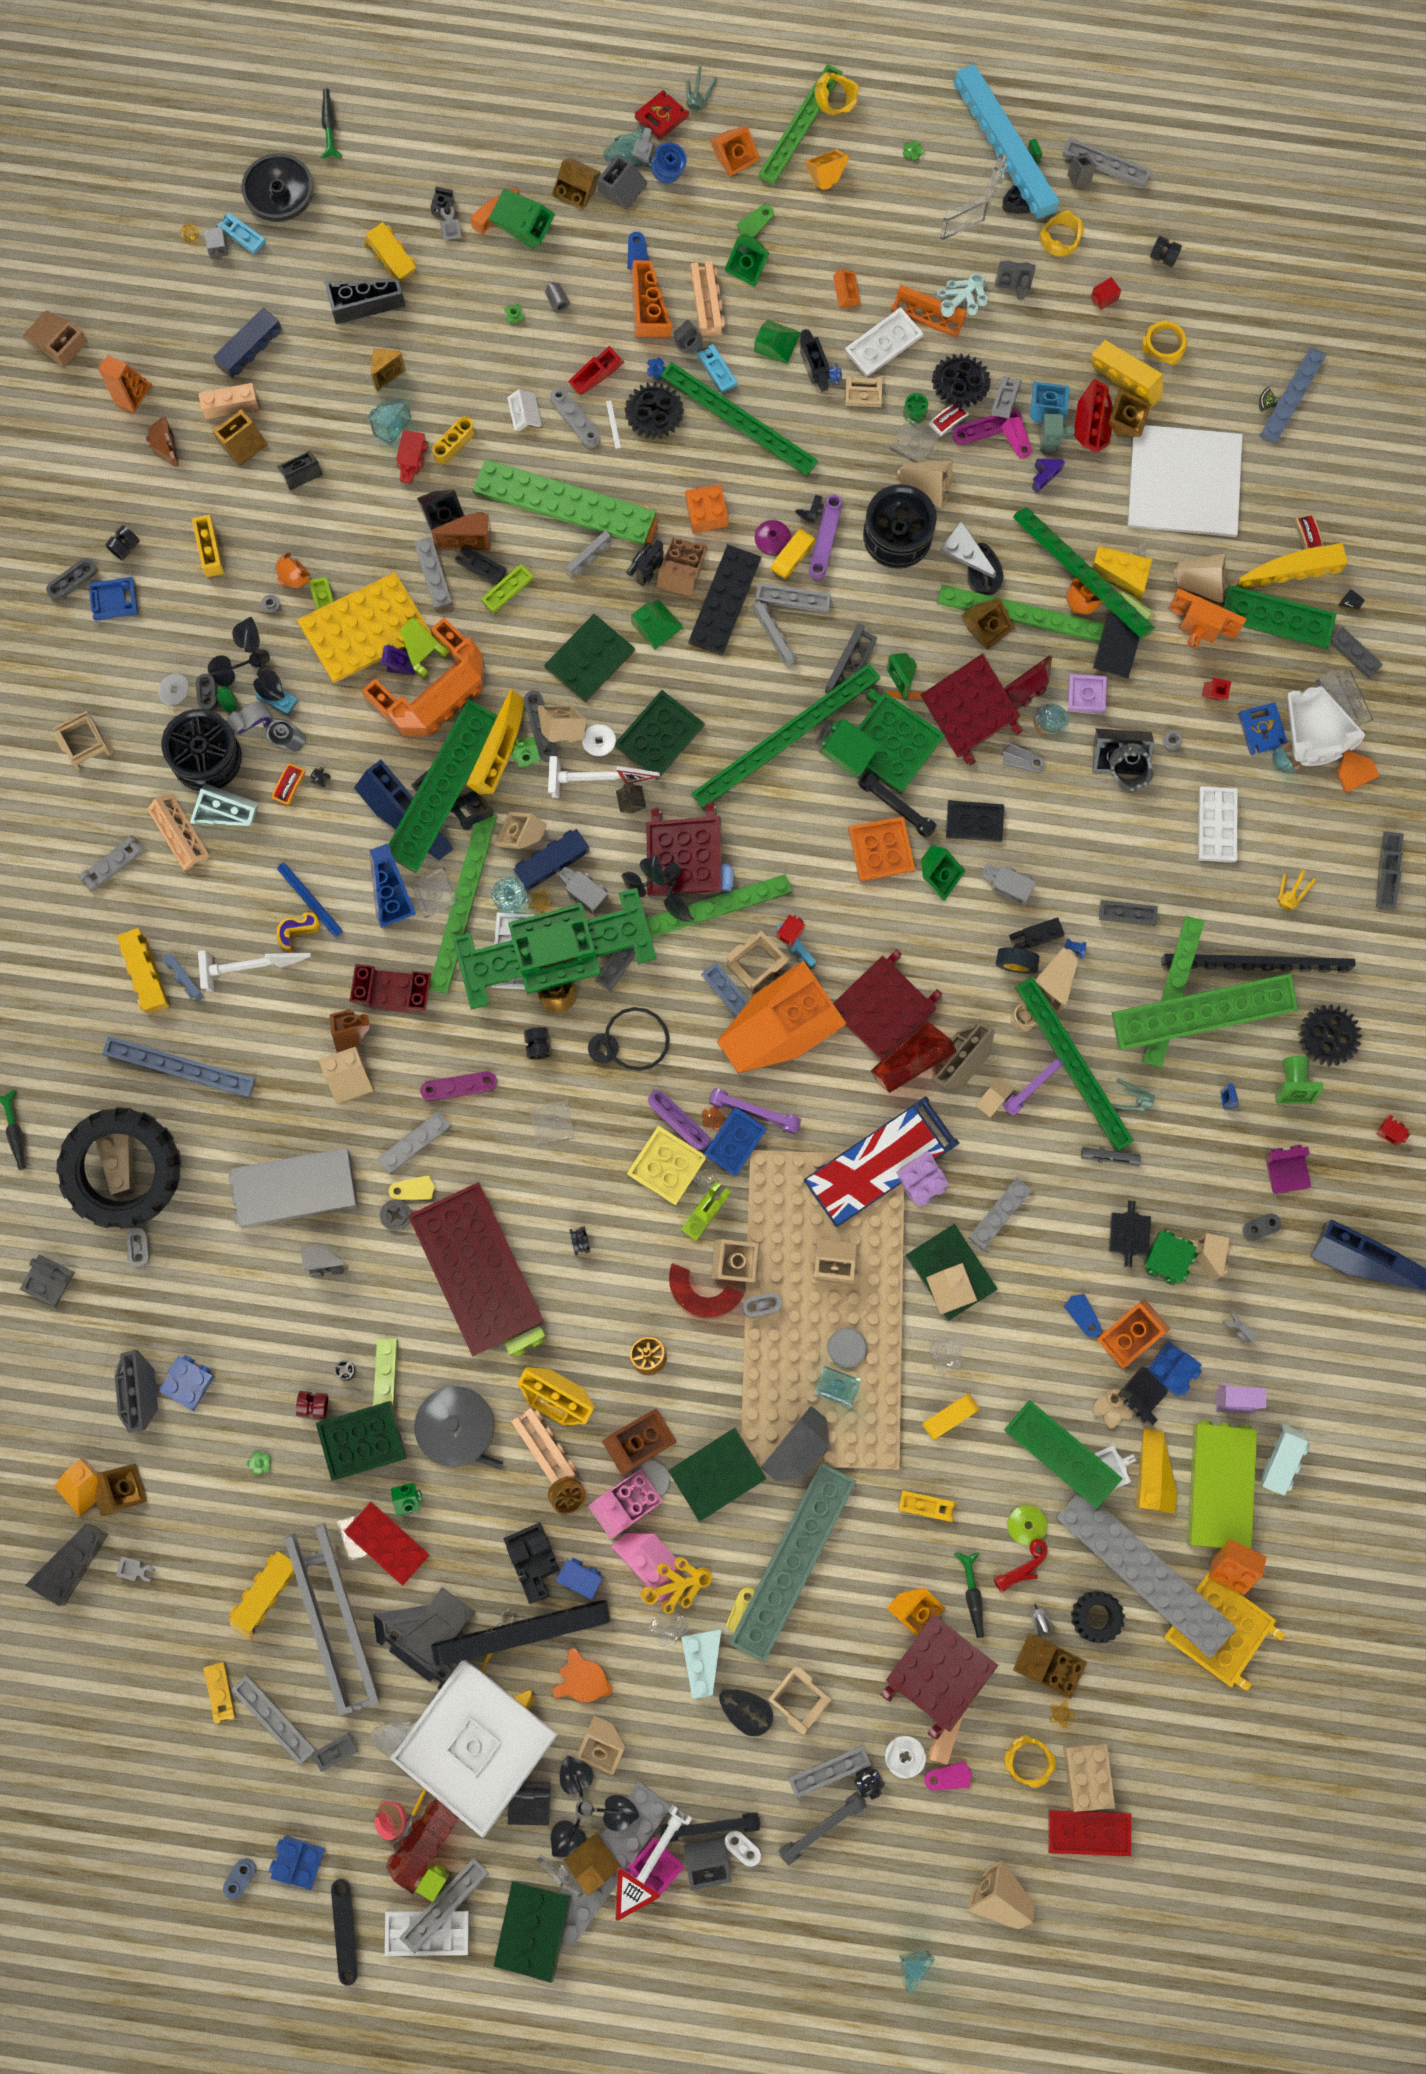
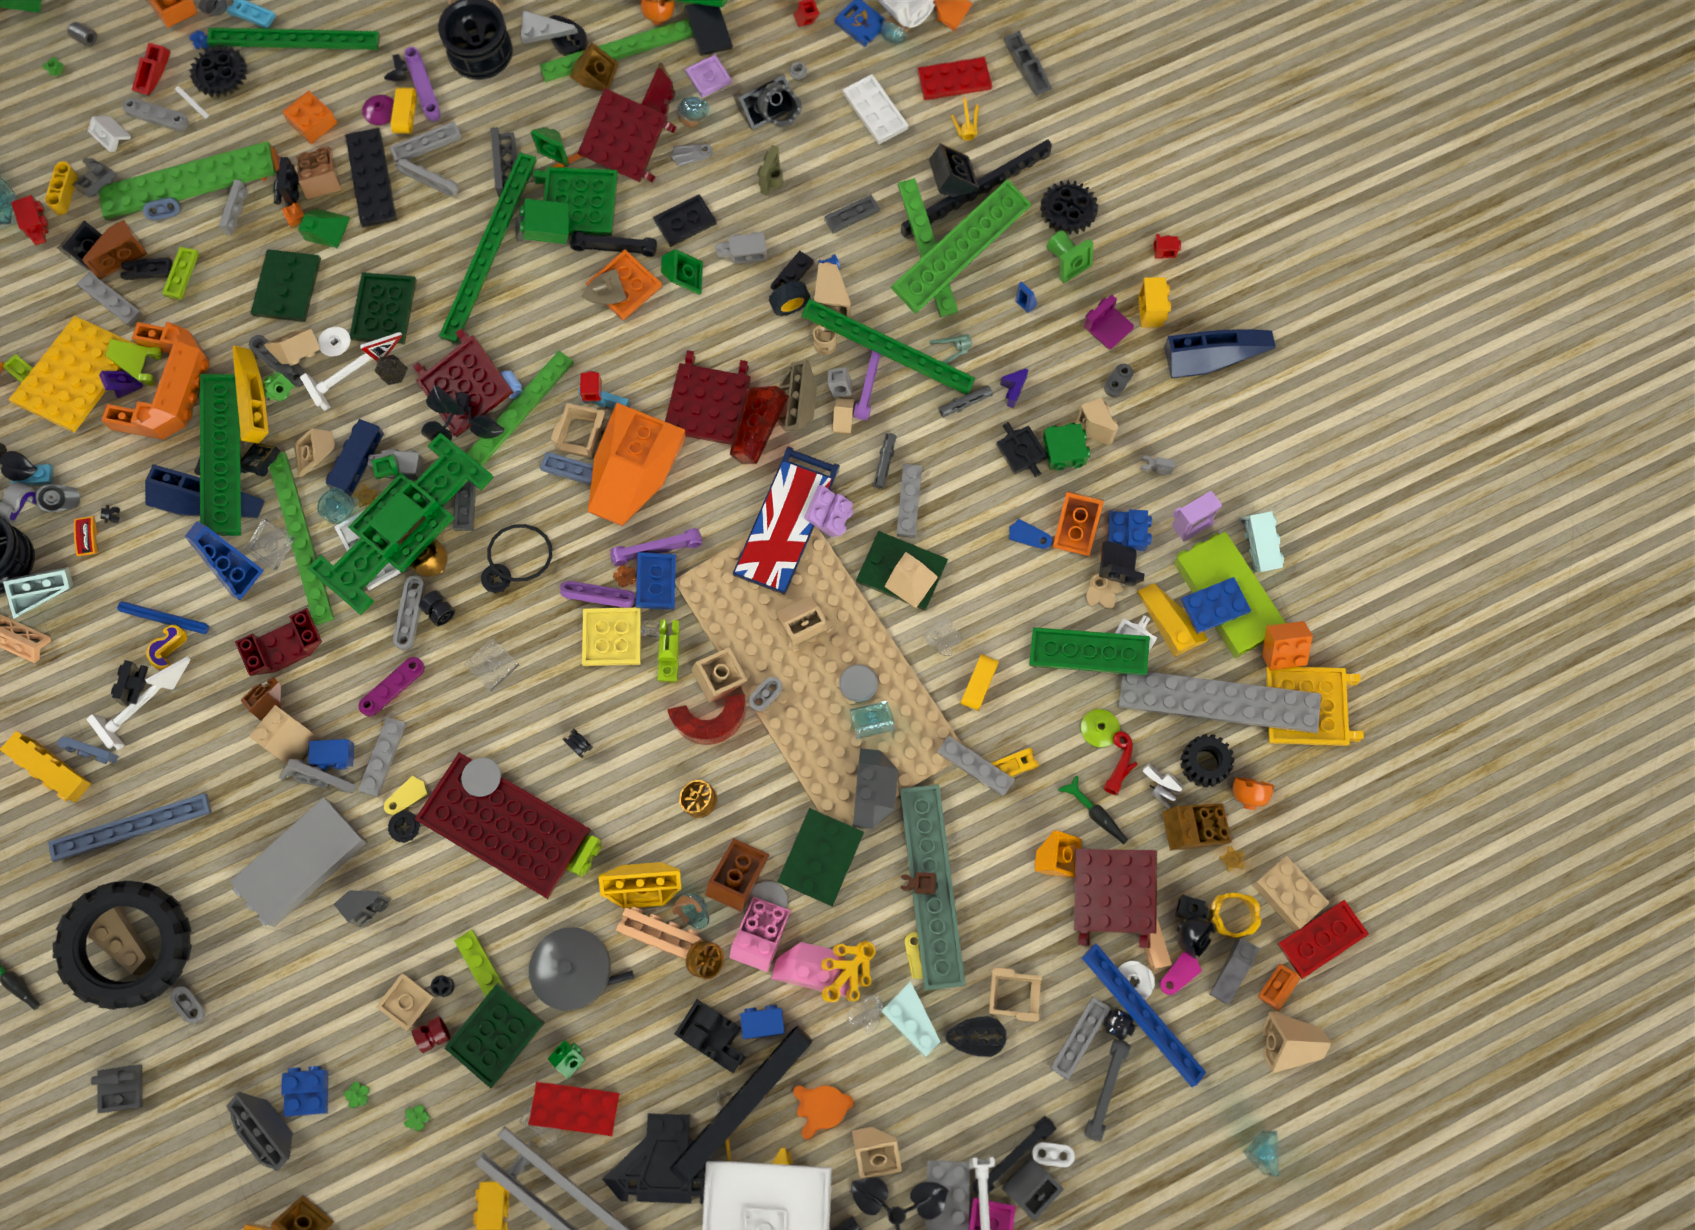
camera: 30 degrees left, 5 degrees down
(224, 1412) = (356, 1095): none -> bright green plant
(250, 943) = (129, 684): none -> black plate
(308, 1363) = (405, 1002): none -> tan plate
(349, 1123) = (313, 776): none -> light grey wing
(375, 1113) = (331, 754): none -> blue brick
(483, 1216) = (481, 777): none -> light grey piece
(486, 450) = (95, 178): none -> dark grey plate
(512, 1030) = (408, 613): none -> light grey plate
(527, 517) = (162, 208): none -> sand blue plate
(572, 889) = (386, 467): none -> green tile
(583, 1446) = (692, 910): none -> clear light blue piece
(637, 593) = (293, 214): none -> orange tile
(785, 1554) = (922, 883): none -> reddish brown plate
(862, 843) = (605, 289): none -> dark tan shield
(893, 1790) = (1144, 1015): none -> blue plate
(897, 1487) = (975, 766): none -> light grey plate
(982, 1755) = (1195, 934): none -> black cylinder
(990, 1726) = (1184, 907): none -> black brick
(995, 1806) = (1234, 970): none -> flat silver slope
(1009, 1157) = (884, 462): none -> dark grey pin
(1010, 1067) = (839, 382): none -> light grey brick
(1024, 1846) = (1279, 987): none -> orange slope
(1051, 1610) = (1167, 780): none -> white slope
(1085, 822) = (770, 169): none -> olive plate
(1116, 1669) = (1252, 792): none -> orange cylinder
(1166, 1168) = (1015, 383): none -> dark purple slope
(1200, 1489) = (1215, 605): none -> blue plate
(1245, 934) = (952, 172): none -> black slope
(1312, 840) = (954, 78): none -> red plate
(1342, 1177) = (1154, 302): none -> yellow brick

